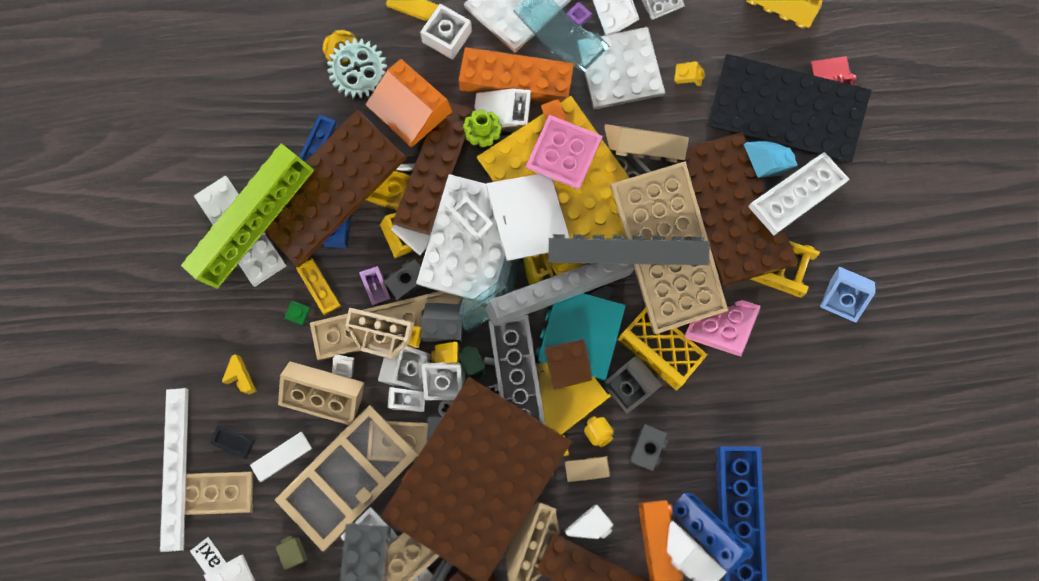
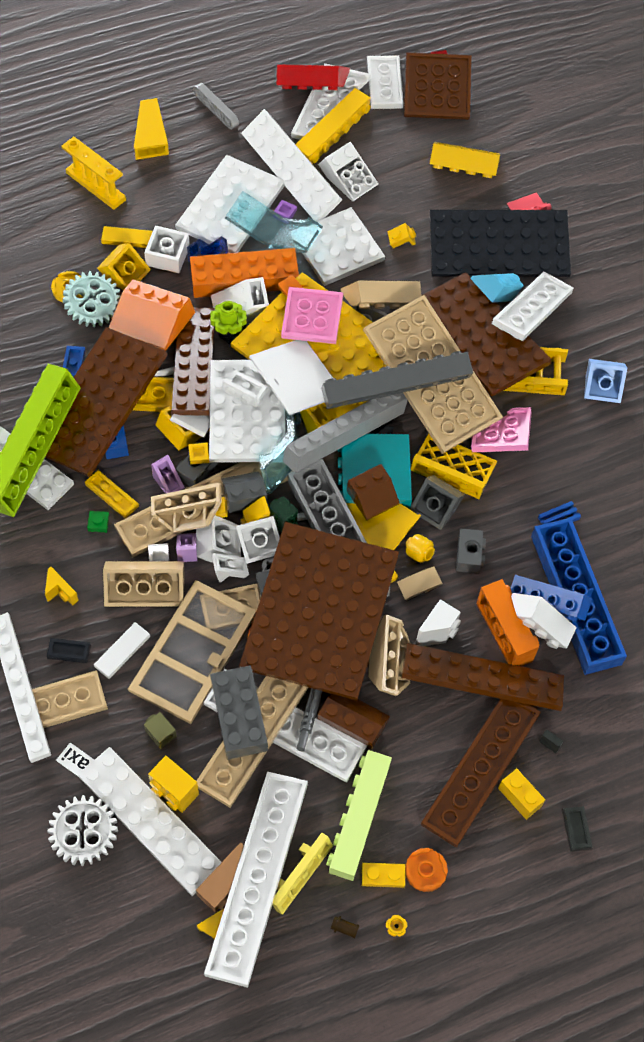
camera: 20 degrees left, 15 degrees down
(370, 366) = (186, 547): none -> lavender slope
(399, 40) = (124, 266): none -> yellow slope
(408, 272) = (198, 453): none -> yellow plate
(481, 41) = (201, 248): none -> clear blue brick
(767, 431) = (573, 510): none -> blue tile

